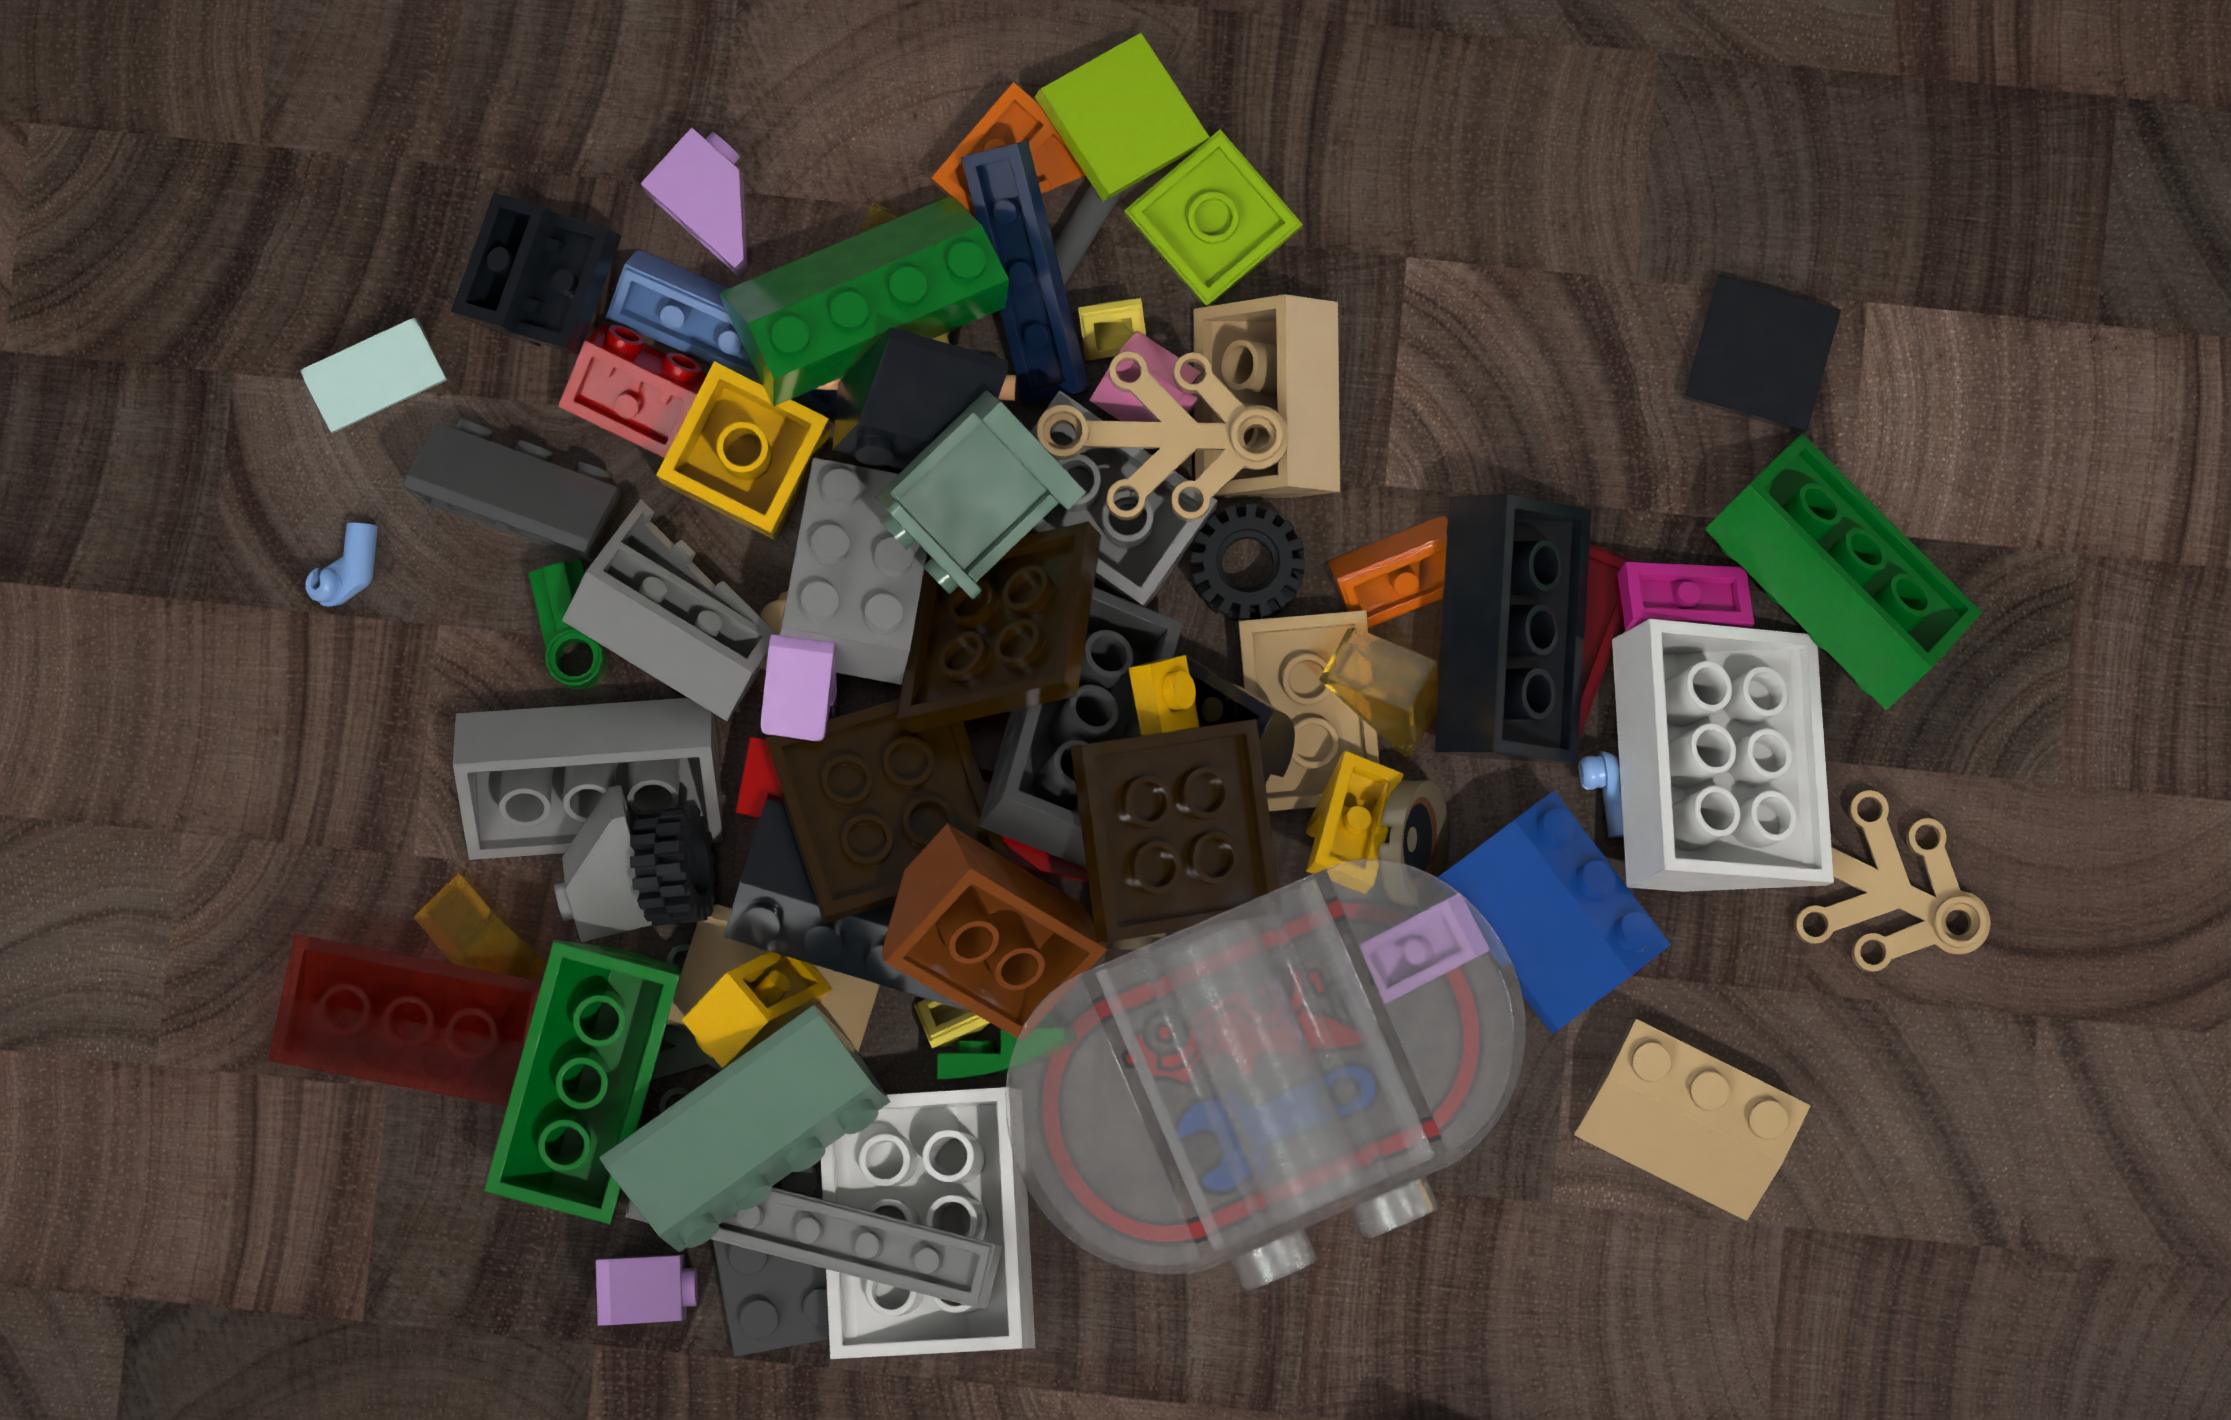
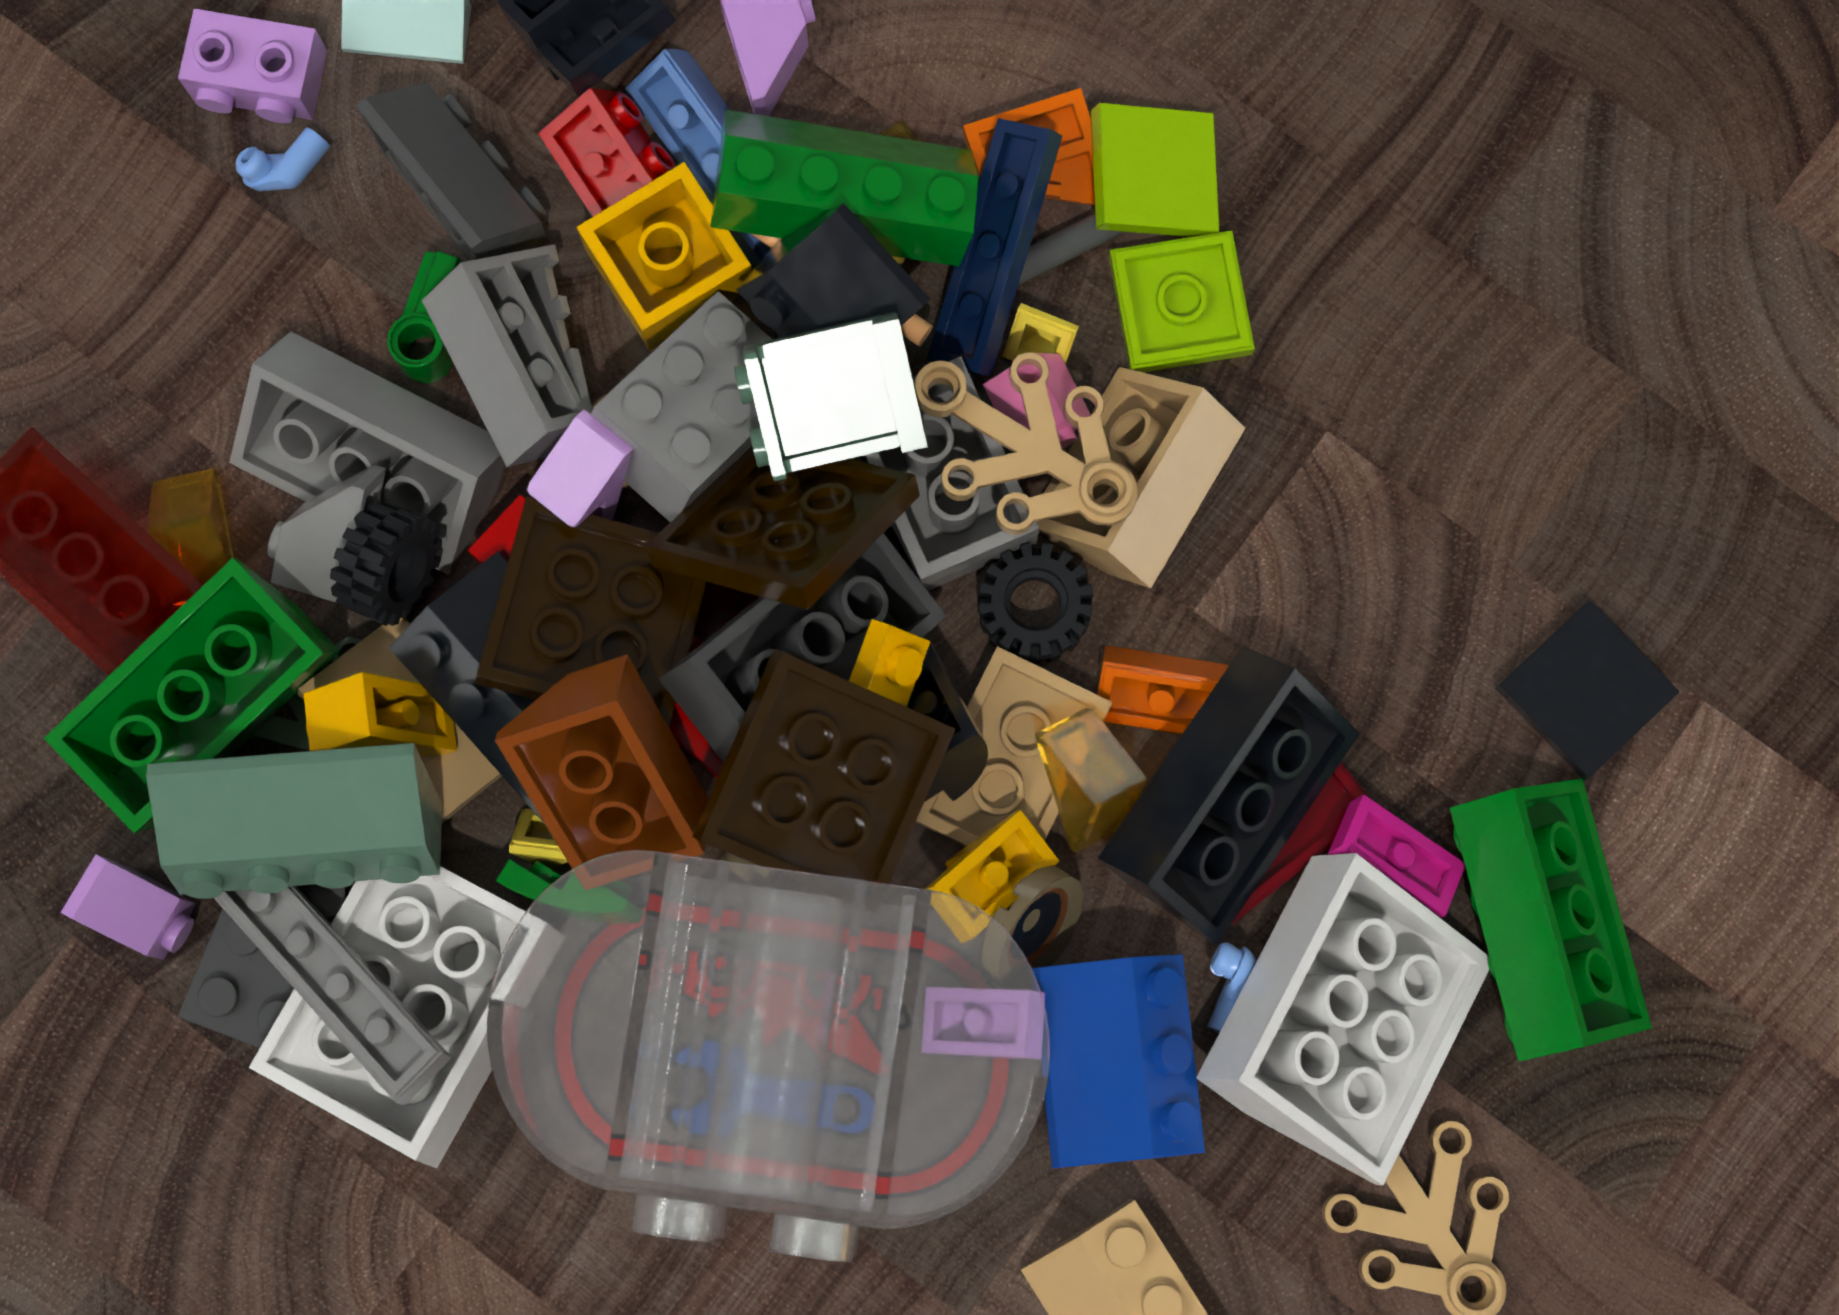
camera: 30 degrees right, 5 degrees down
(267, 497) = (252, 66): none -> lavender brick

